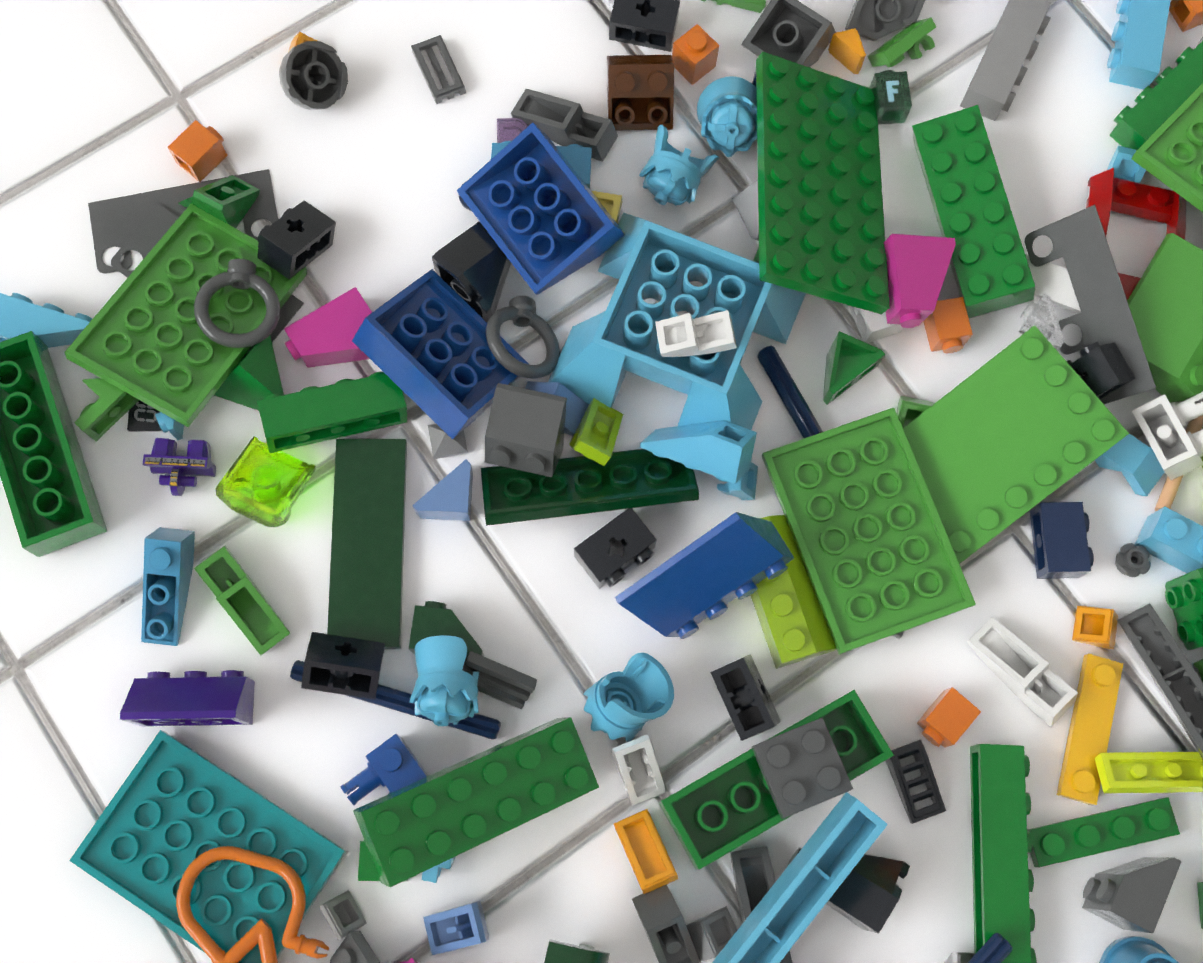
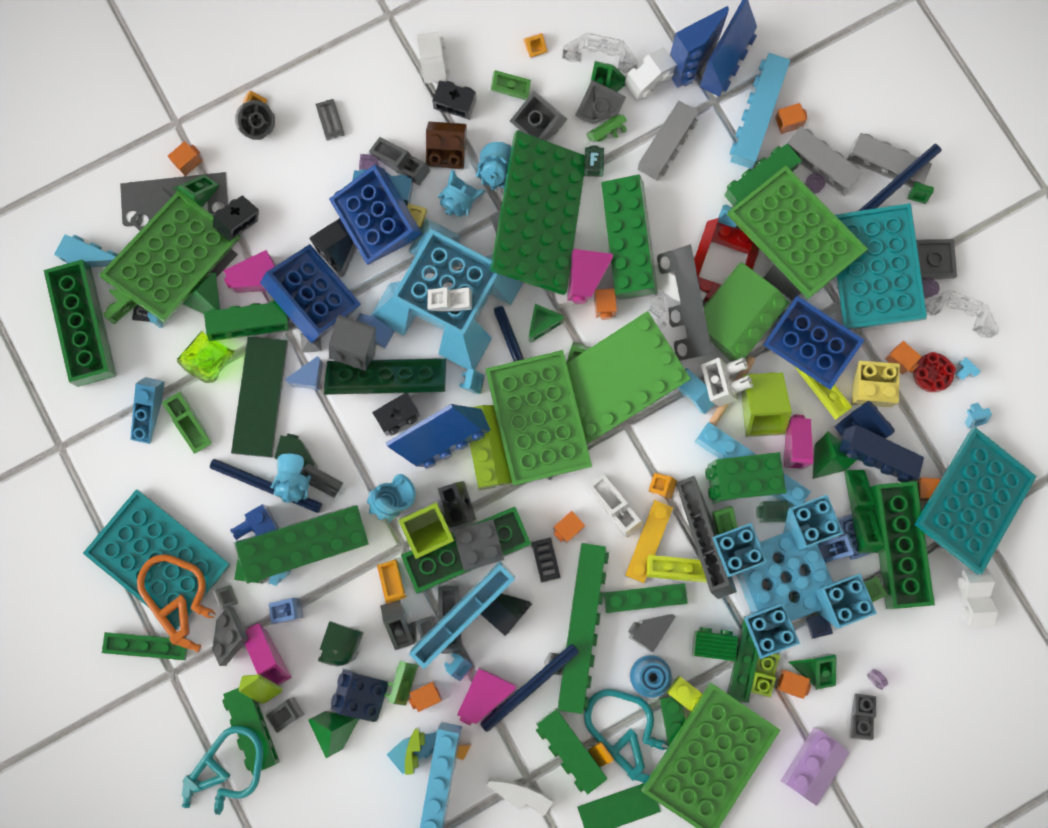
camera: 10 degrees right, 5 degrees up
(190, 700) = (153, 474): dark purple slope -> none
(195, 463) = (151, 340): dark purple hips -> none
(240, 275) = (201, 237): dark grey piece -> none
(342, 665) = (237, 464): black brick -> none
(523, 314) = (361, 273): dark grey piece -> none
(597, 432) = (394, 347): lime slope -> none
(639, 769) = (393, 537): white slope -> none
(695, 54) = (481, 124): orange brick -> none
(703, 748) = (426, 529): none -> lime slope
(710, 447) = (454, 363): medium azure slope -> none
(848, 49) = (573, 128): light orange slope -> none
(1061, 540) = (649, 434): dark blue brick -> none
(1104, 367) = (684, 340): black brick -> none
(1126, 566) = (695, 450): dark grey plate -> none

